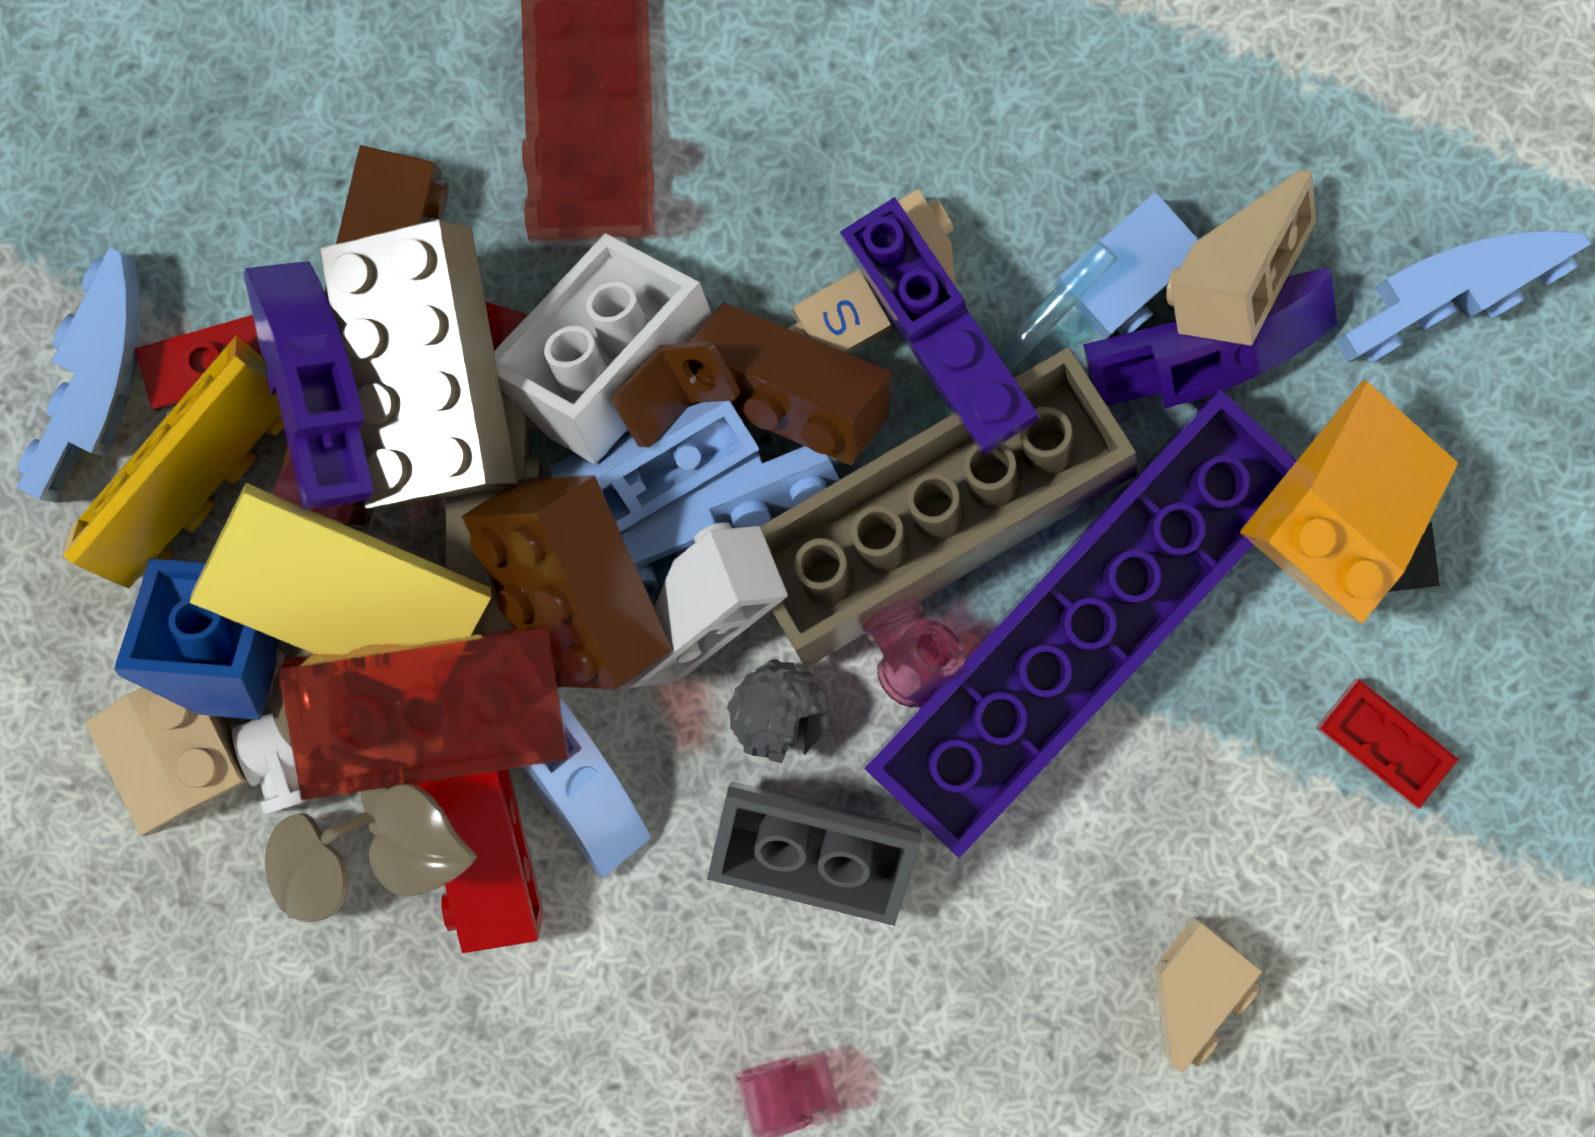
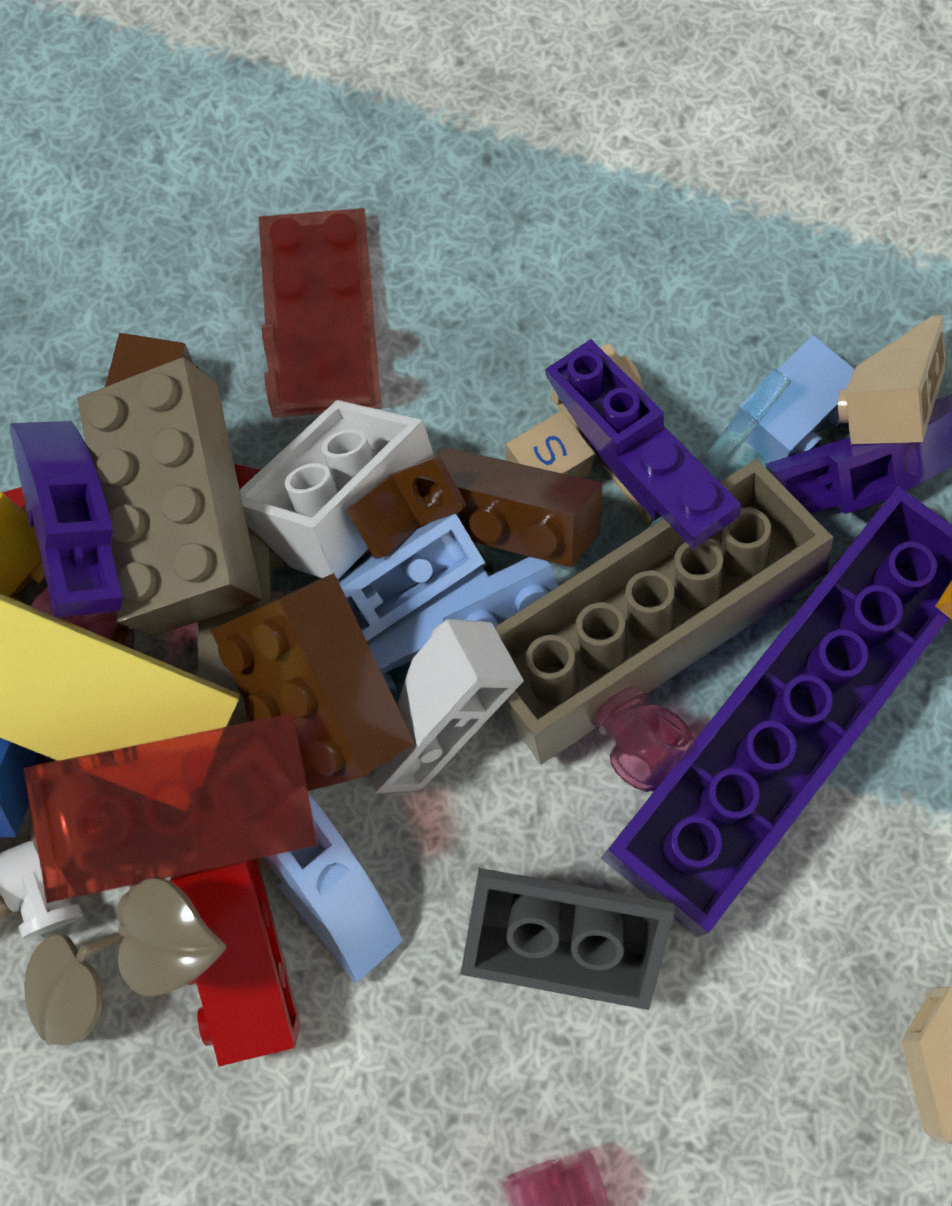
camera: 10 degrees left, 15 degrees down
(778, 709) = (519, 804): dark grey piece -> none

